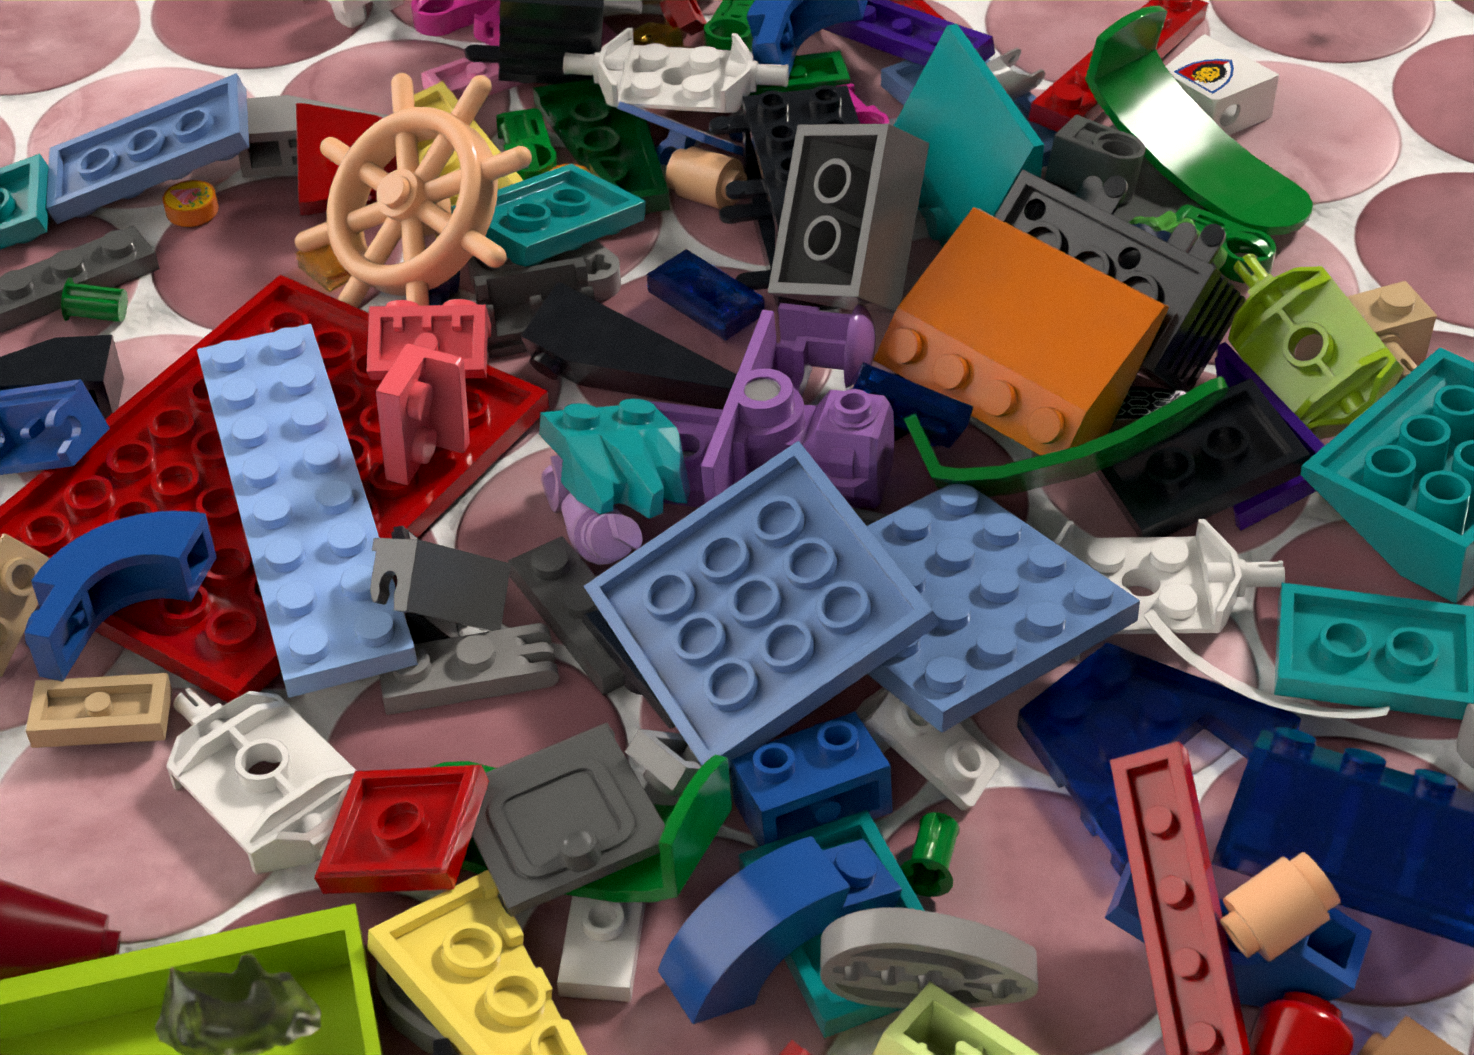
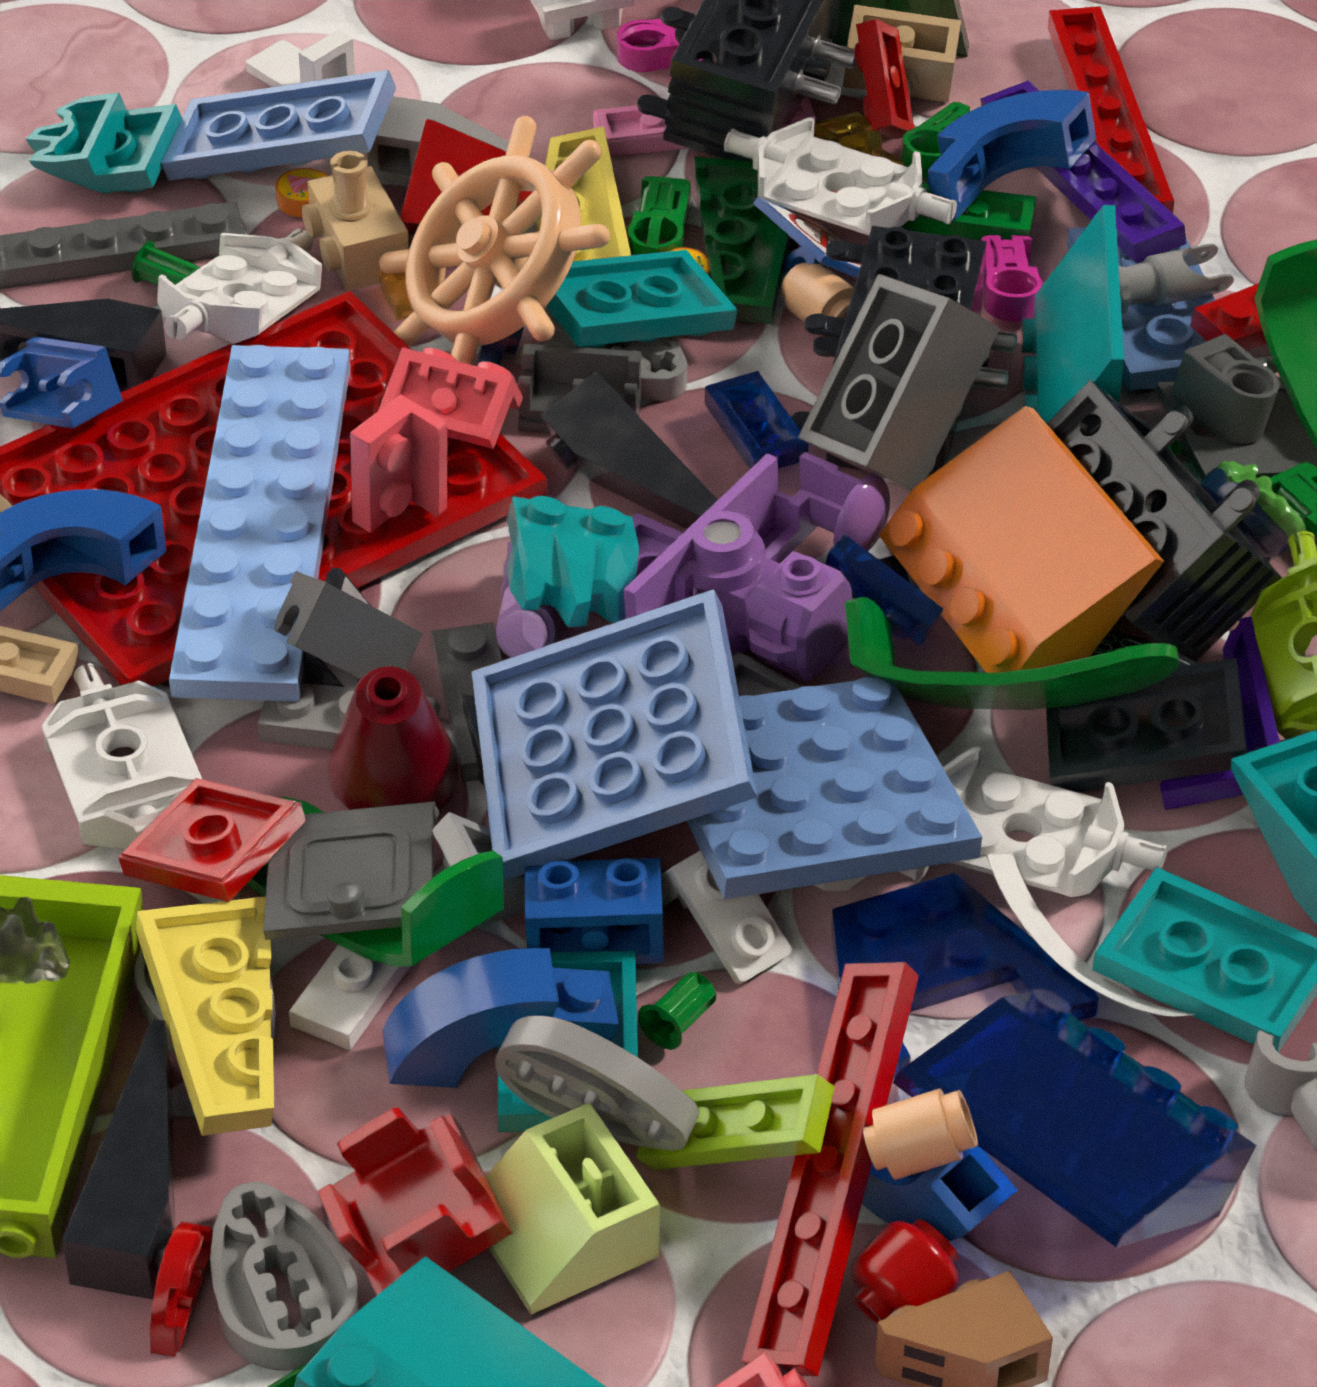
camera: 20 degrees right, 0 degrees up
(123, 99) = (288, 64): none -> white bracket
(176, 297) = (242, 288): none -> white plate
(255, 213) = (353, 220): none -> tan brick
(536, 683) = (391, 746): none -> dark red cone
(1098, 946) = (751, 1122): none -> lime plate

